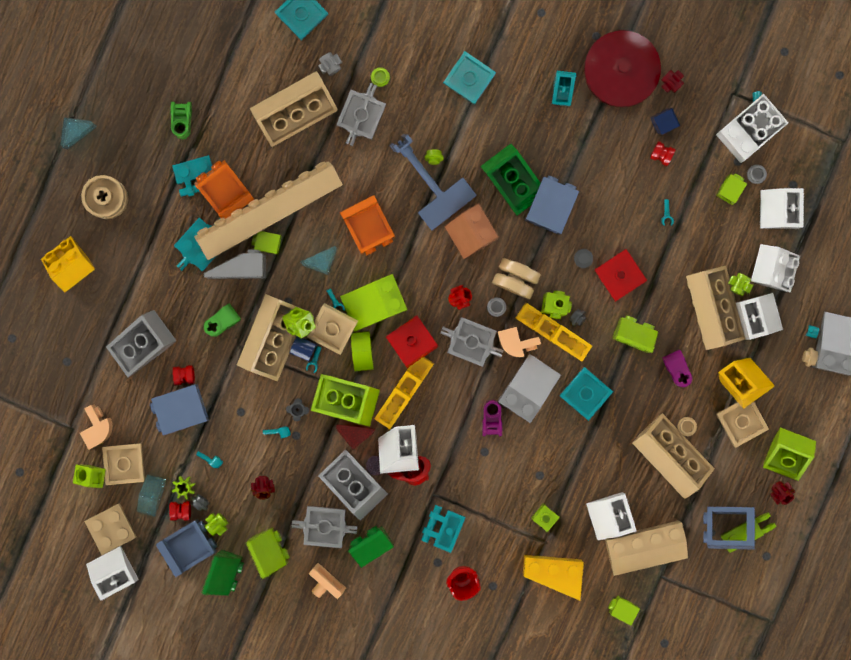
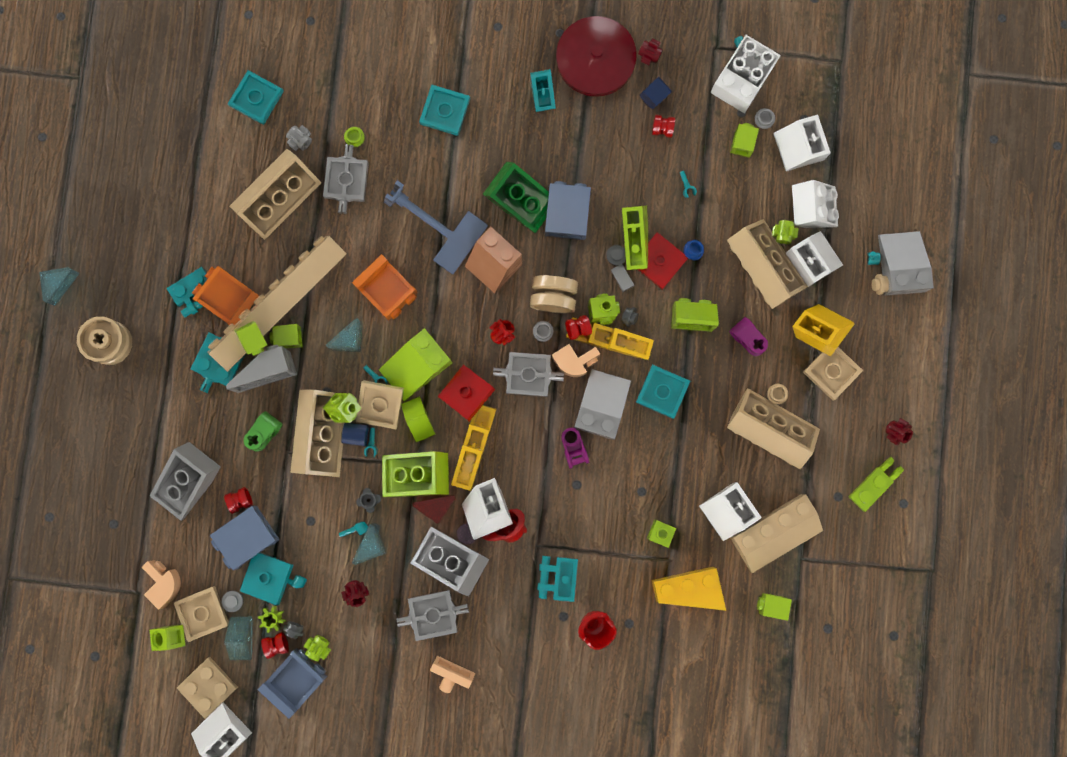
camera: 15 degrees left, 5 degrees down
(67, 264) = (85, 422): yellow slope -> none
(153, 461) = (232, 601): none -> light grey plate
(181, 115) = (162, 235): bright green piece -> none
(189, 450) = (266, 578): none -> teal plate
(223, 574) = (337, 699): green slope -> none
(238, 238) = (251, 338): none -> lime brick
(267, 552) = (378, 661): lime slope -> none
(288, 451) = (370, 546): none -> clear light blue slope
(371, 546) = (487, 621): green slope -> none
(434, 157) = (432, 199): lime plate -> none
(529, 314) = (578, 327): none -> red wheel
(582, 280) = (622, 278): none -> light grey piece
(605, 247) = (636, 237): none -> lime slope
(653, 275) = (693, 250): none -> blue plate
(723, 544) = (884, 492): sand blue window -> none
(790, 454) = (893, 389): lime slope -> none

